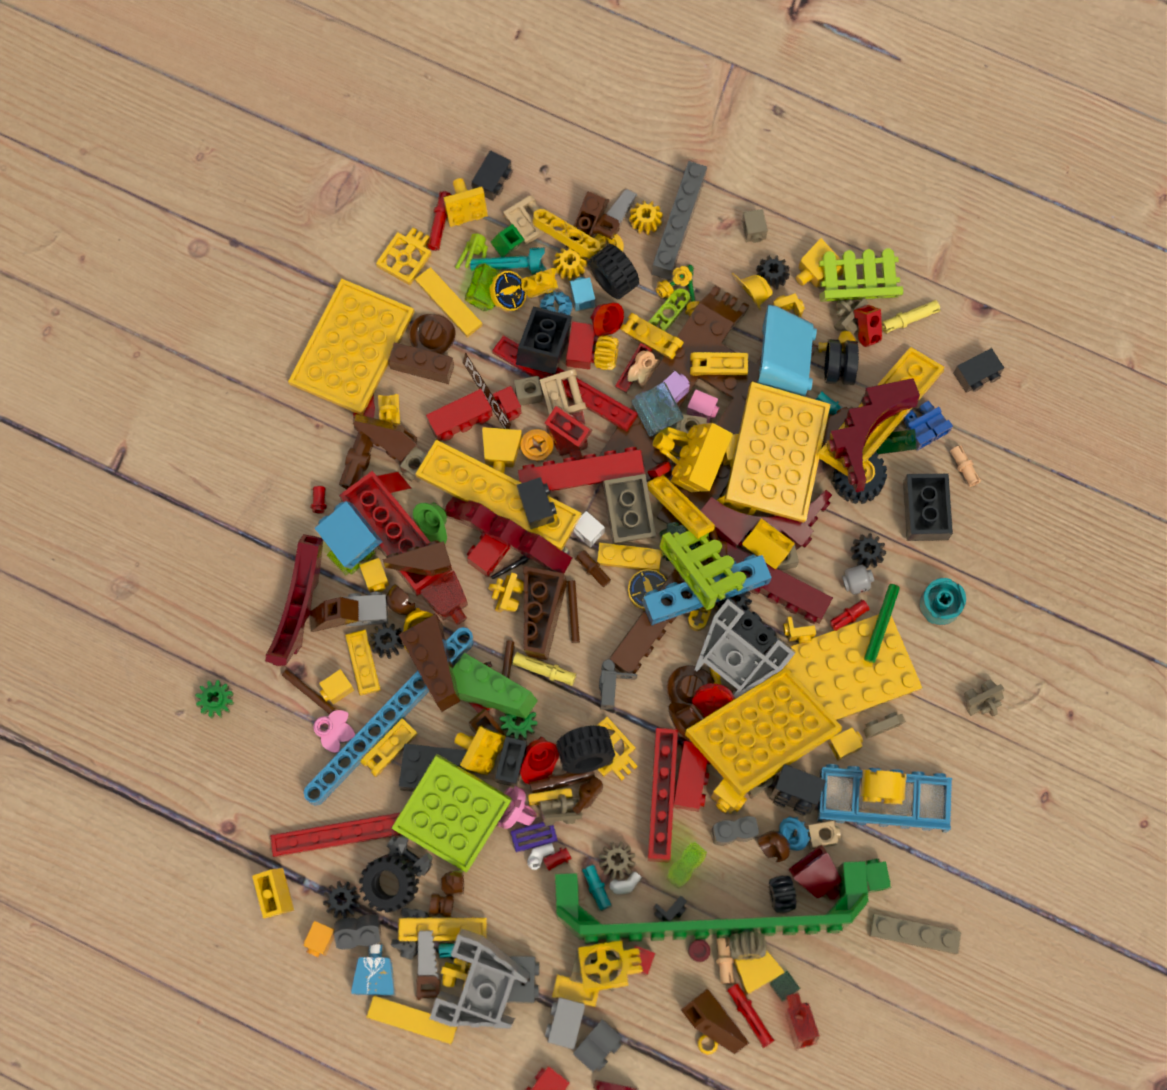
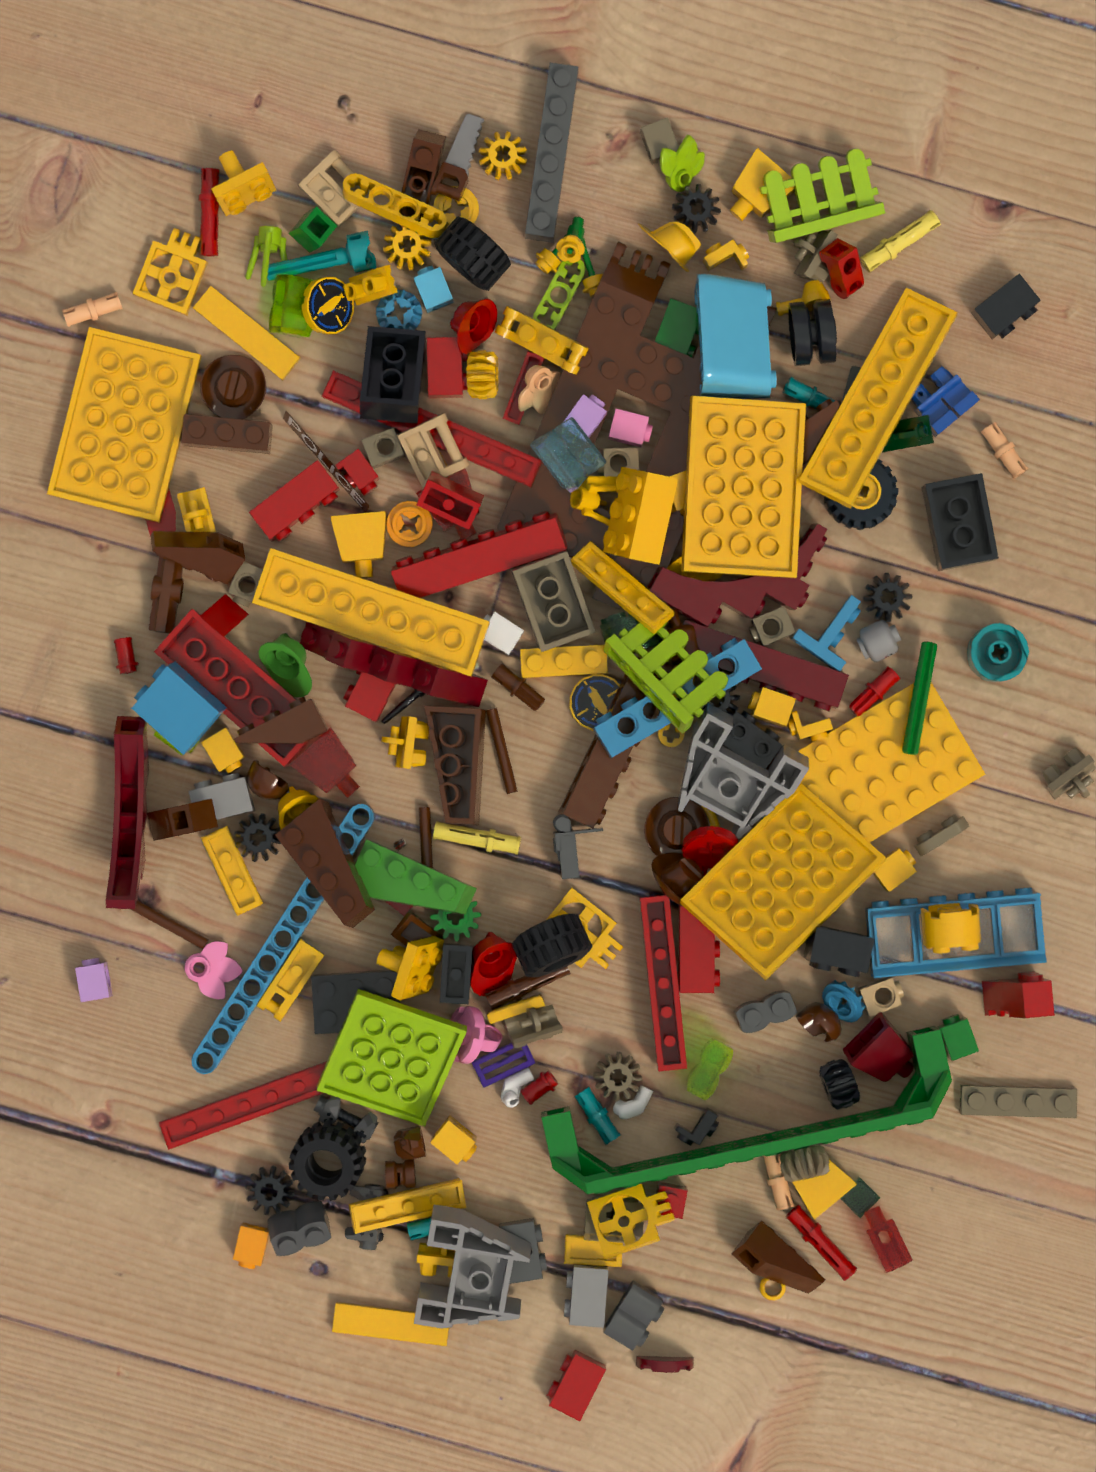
camera: 15 degrees left, 15 degrees up
(212, 706) = (42, 946): green gear -> none
(245, 722) = (93, 980): none -> lavender brick
(273, 893) = (179, 1199): yellow brick -> none
(335, 687) = (203, 912): yellow brick -> none
(346, 268) = (92, 309): none -> light nougat pin
(374, 974) = (331, 1278): dark azure torso -> none
(427, 966) = (397, 1257): light grey piece -> none
(486, 884) = (454, 1141): none -> yellow brick
(492, 175) = (271, 130): black brick -> none
(536, 503) = (425, 620): black brick -> none
(588, 793) = (564, 998): reddish brown piece -> none
(659, 470) = (586, 535): red tile -> none
(699, 950) = (743, 1173): dark red tile -> none
(719, 363) = (644, 370): yellow plate -> none
(727, 798) = (745, 975): yellow brick -> none
(749, 342) = (679, 327): none -> green brick
(767, 240) = (681, 165): none -> lime plate
(768, 542) = (751, 617): yellow panel -> none
(773, 609) = (771, 706): none -> yellow brick
(814, 578) = (831, 635): none -> dark azure bracket
(878, 405) = (876, 391): dark red arch -> none
(927, 850) = (1019, 997): none -> red wedge

